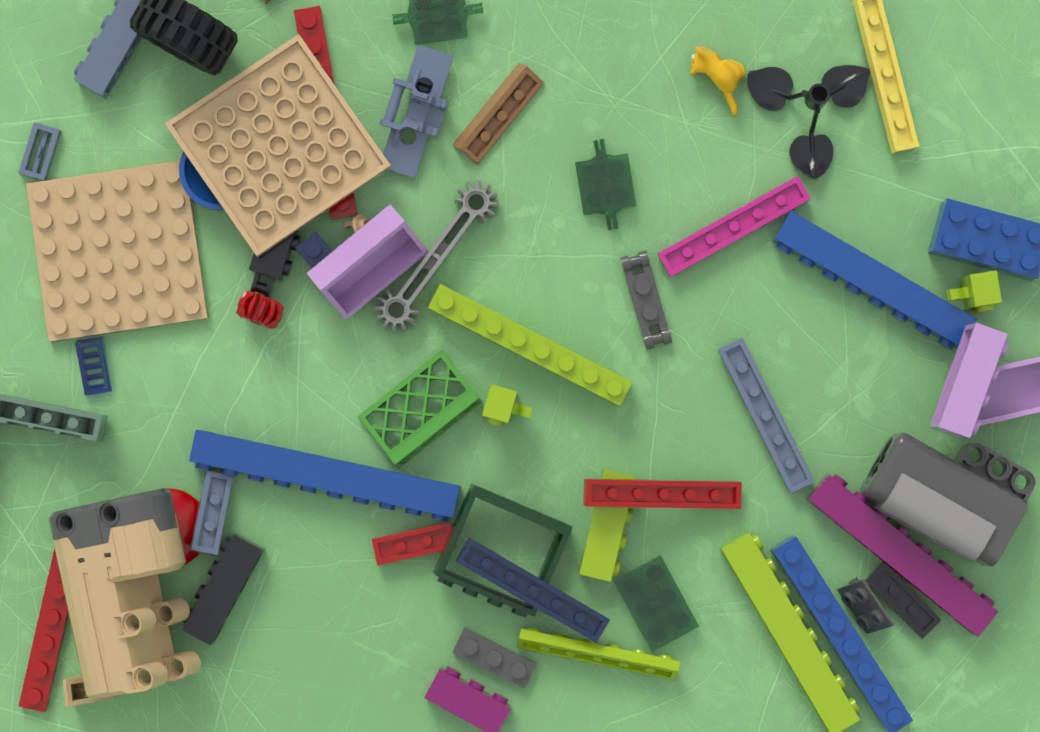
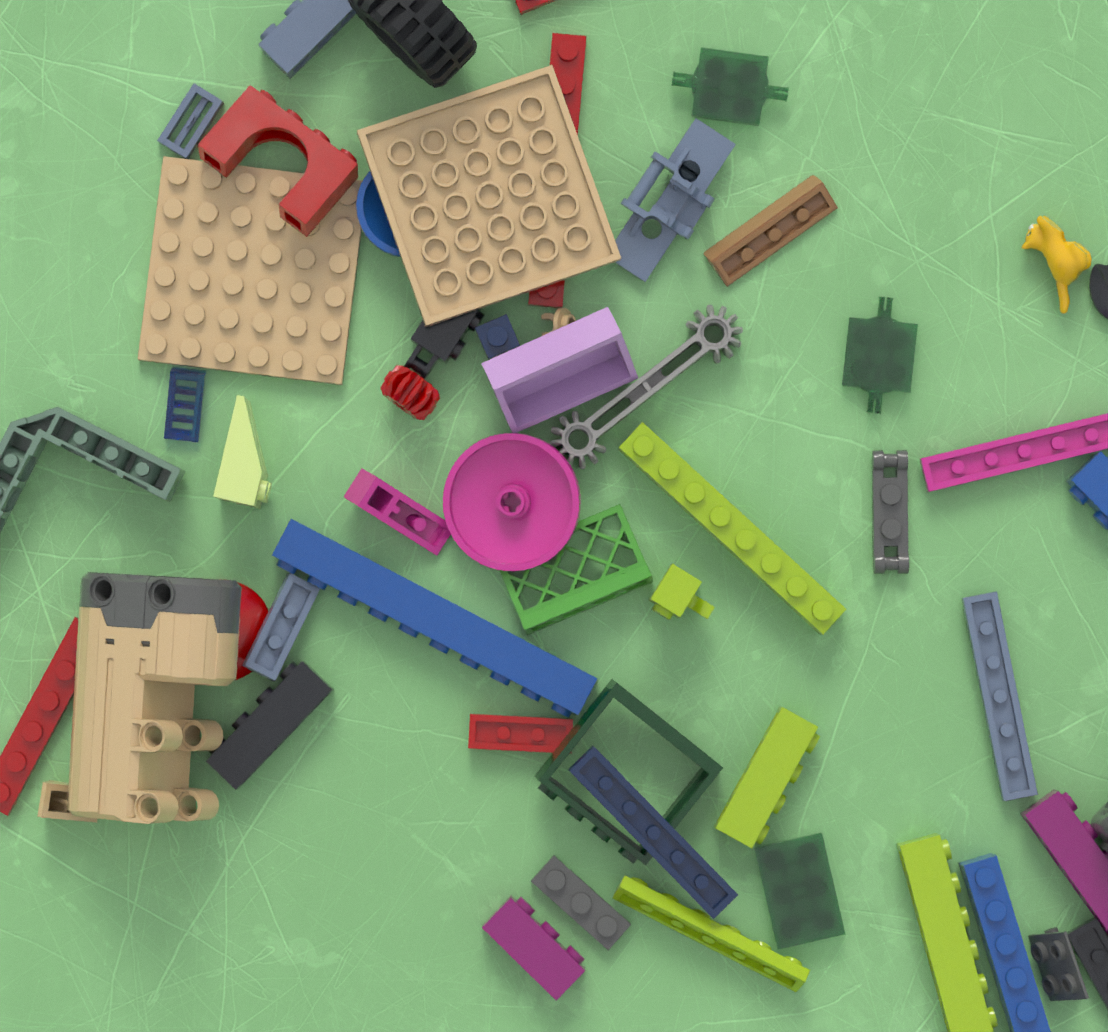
camera: 10 degrees right, 0 degrees up
(89, 136) = (259, 120): none -> arch
(148, 400) = (243, 468): none -> yellowish green slope
(276, 402) = (398, 511): none -> dark pink slope
(359, 371) = (511, 501): none -> dark pink dish
(662, 493) = (845, 757): red plate -> none

